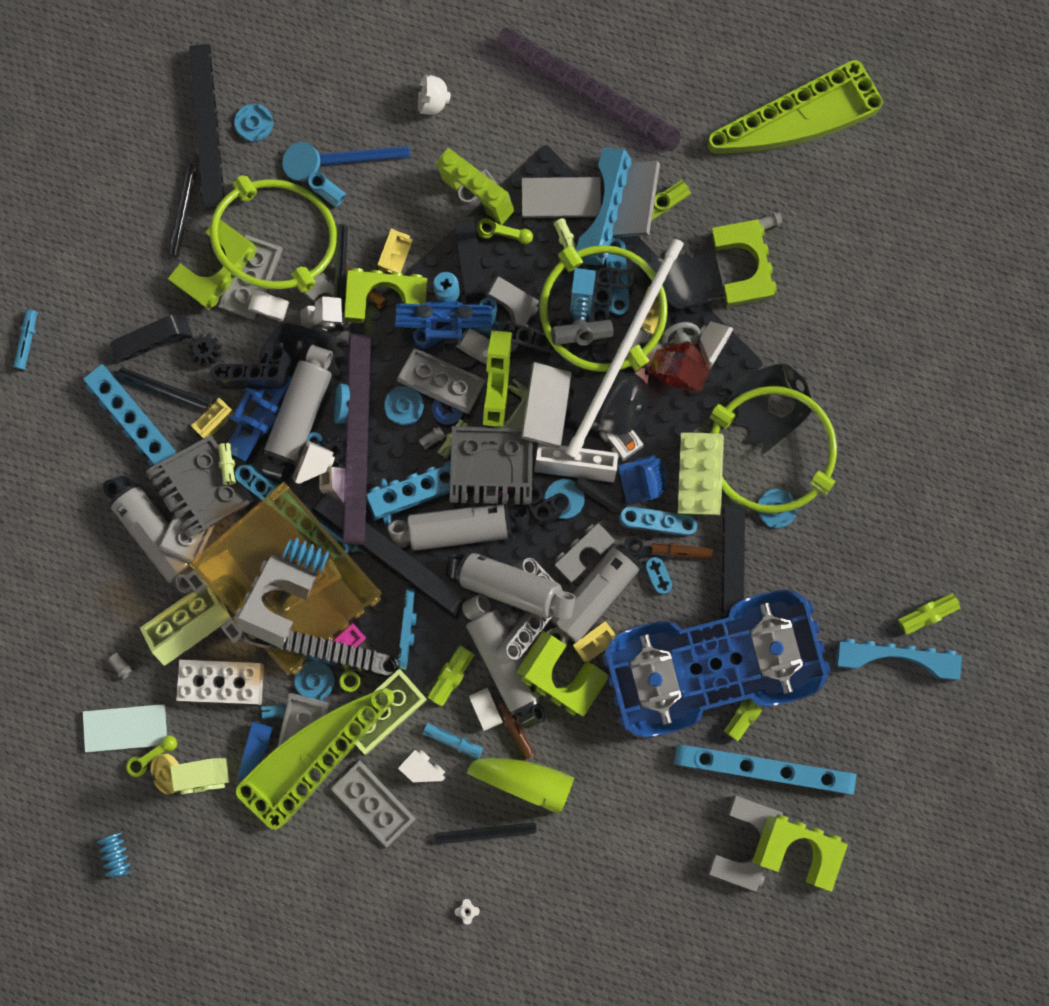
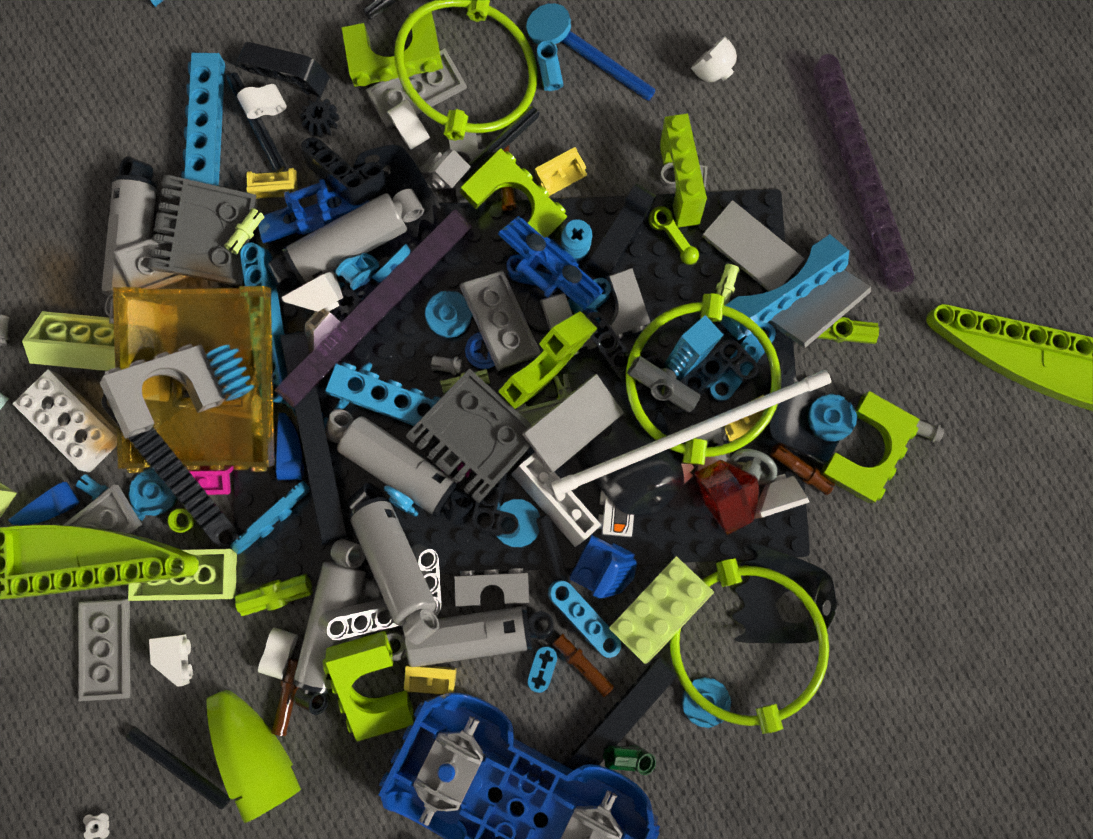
camera: 35 degrees right, 0 degrees up
(157, 371) = (261, 101): none -> white axle
(324, 425) = (358, 269): none -> dark azure piece
(382, 579) = (289, 453): none -> blue piece
(451, 740) = (220, 648): dark azure pin -> none
(481, 545) = (400, 500): none -> dark azure piece
(703, 264) = (832, 417): none -> dark azure tile
(721, 312) = (810, 474): none -> reddish brown pin
(759, 581) = (629, 759): none -> dark green piece

